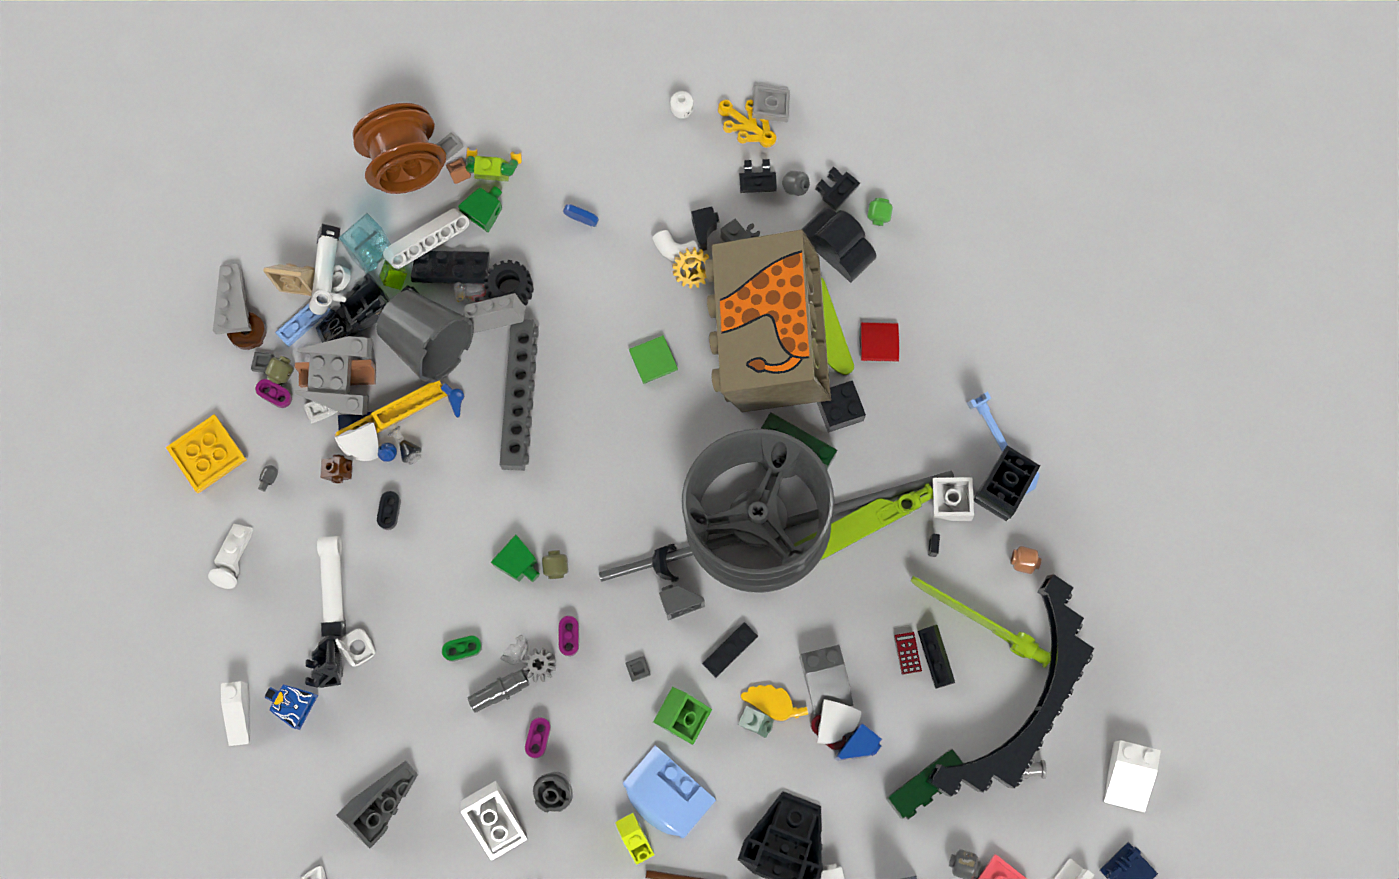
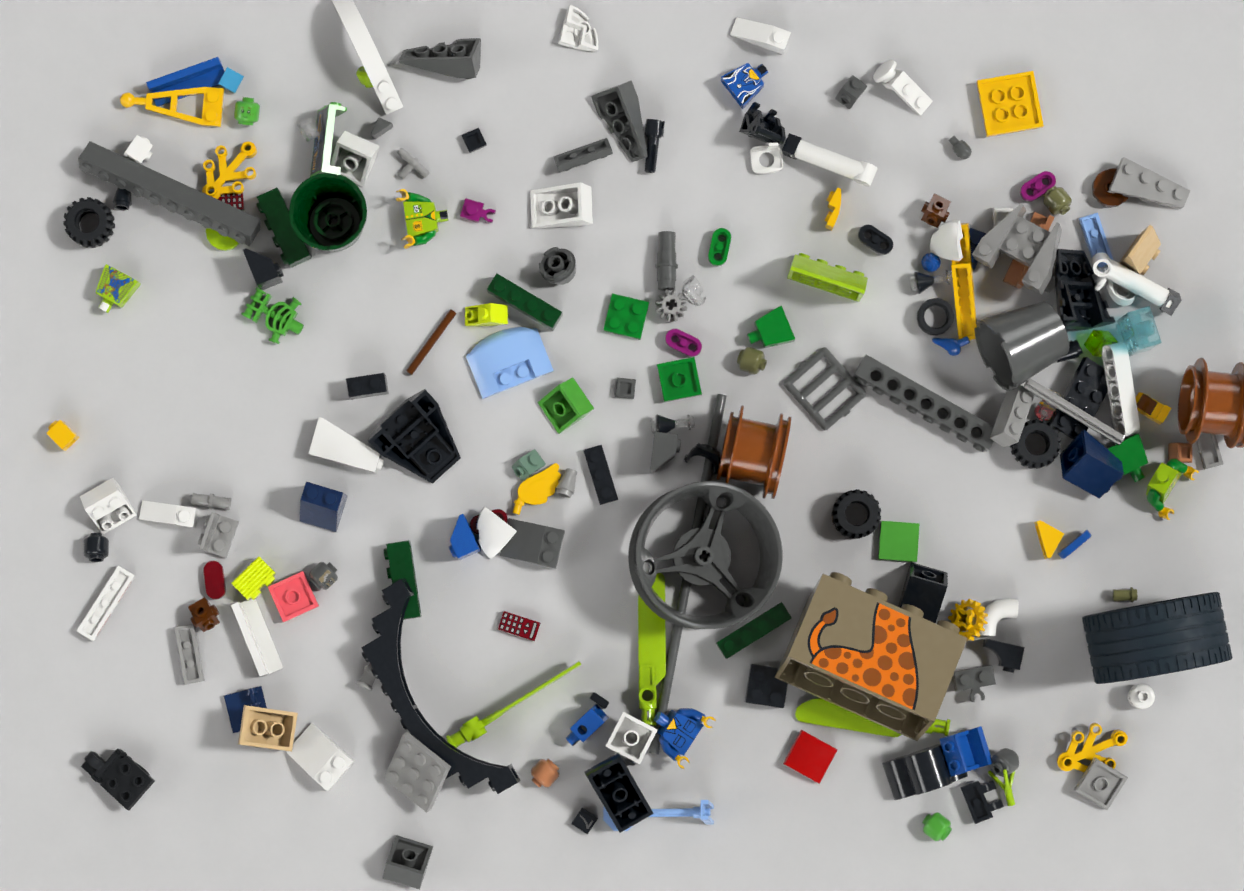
camera: 115 degrees right, 10 degrees up
(257, 601) = (851, 92): none -> dark grey bracket
(260, 361) = (1075, 189): dark grey tile -> none
(372, 562) = (834, 204): none -> yellow slope
(377, 766) = (653, 130): none -> black piece
(427, 412) = (935, 302): none -> black tyre
(431, 206) = (1151, 408): none -> yellow leg
(432, 825) = (583, 155): none -> dark grey plate
(444, 533) = (827, 278): none -> lime slope
(464, 264) = (1074, 411): none -> light grey axle
(505, 231) = (1090, 465): none -> dark blue slope
(536, 737) = (610, 275): magenta plate -> none
(565, 505) = (813, 410): none -> dark grey bar
(569, 703) = (626, 316): none -> green plate
(587, 237) = (1048, 538): none -> yellow slope
(601, 154) = (1125, 595): none -> olive pin
(603, 807) = (524, 302): none -> dark green brick
(605, 622) = (679, 379): none -> green plate
(629, 96) = (1157, 638): none -> black wheel
(639, 513) = (754, 452): none -> dark orange wheel
(643, 390) = (868, 502): none -> black tyre
(655, 615) = (664, 424): none -> piece
(686, 316) = (925, 590): none -> black slope
(754, 676) = (567, 483): none -> light grey cone
(758, 181) = (1025, 729): black plate -> none
(805, 214) = (966, 751): none -> blue panel
(816, 173) = (1007, 787): none -> lime plant
(922, 460) = (679, 731): none -> blue torso
(936, 656) = (503, 648): black plate -> none
(962, 543) = (591, 720): none -> blue torso
(1045, 504) = (584, 820): none -> black tile
(1095, 674) = (417, 772): none -> light grey plate
(1139, 839) = (267, 728): none -> tan slope
(1175, 642) = (407, 862): none -> dark grey slope

